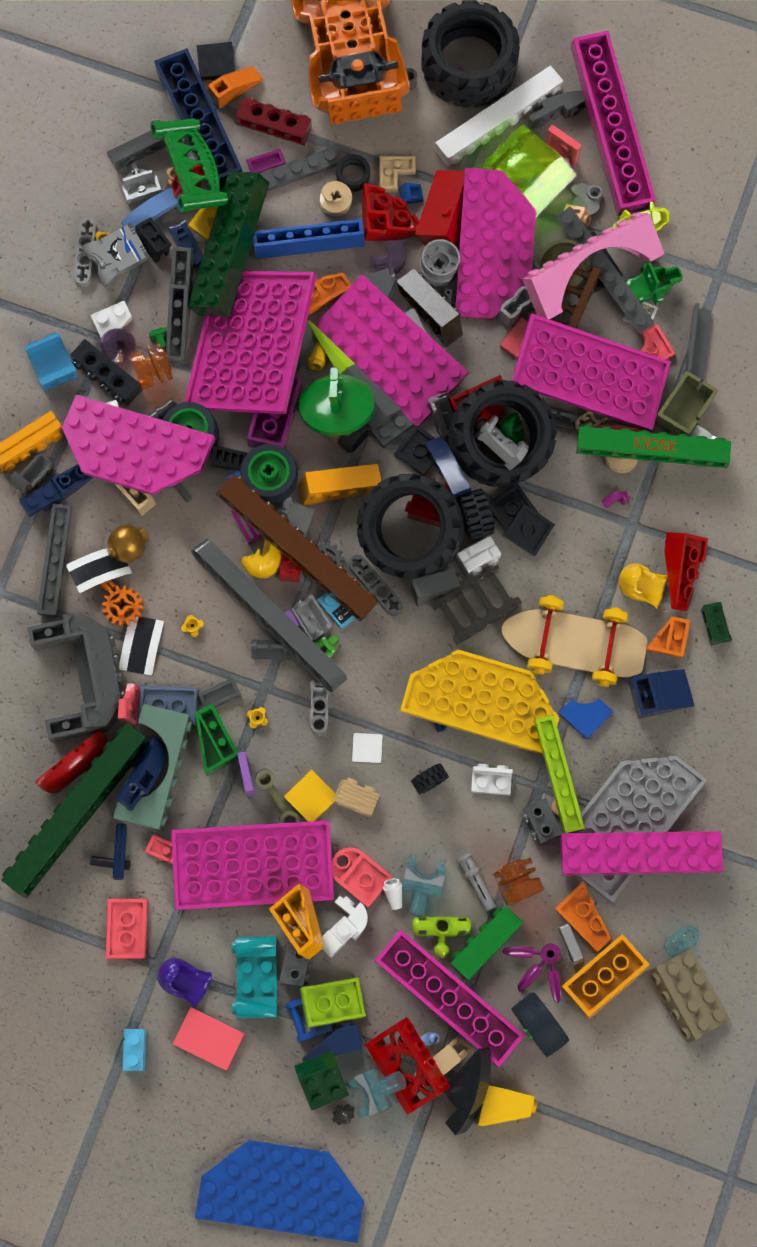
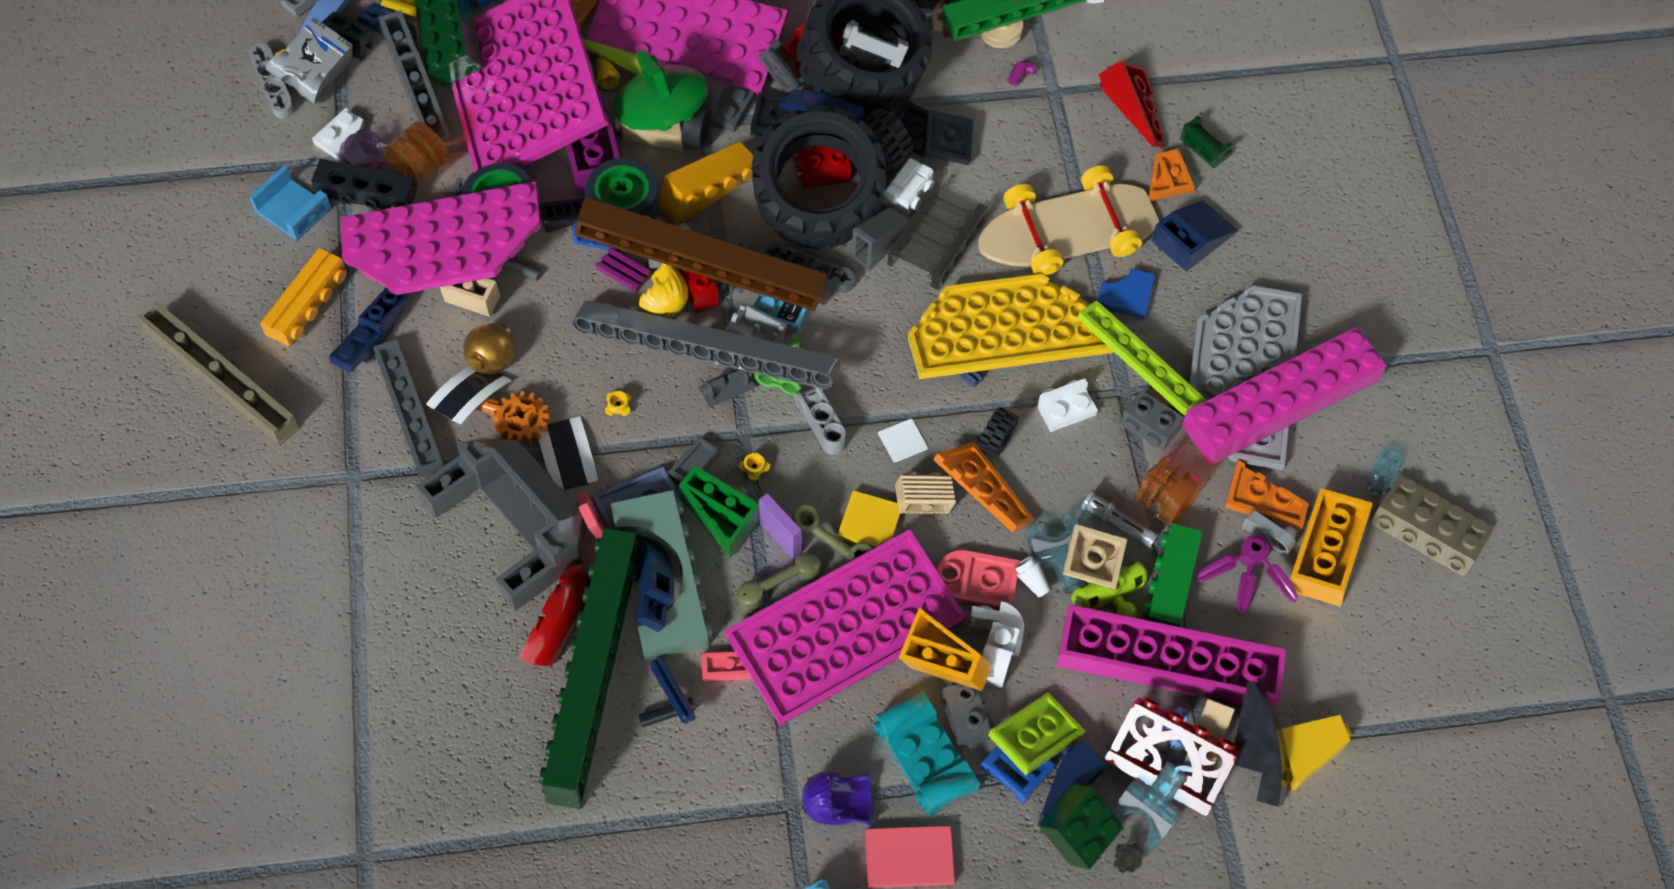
camera: 30 degrees left, 15 degrees down
(32, 475) = (331, 327): dark grey animal -> none
(126, 929) = (731, 779): coral tile -> none
(159, 335) = (404, 122): green brick -> none
(252, 810) = (751, 593): none -> olive piece
(400, 810) = (985, 484): none -> orange wing
(435, 906) = (1094, 556): none -> tan slope
(540, 1024) = (1298, 625): black wheel -> none
(641, 584) = (1103, 137): yellow piece -> none

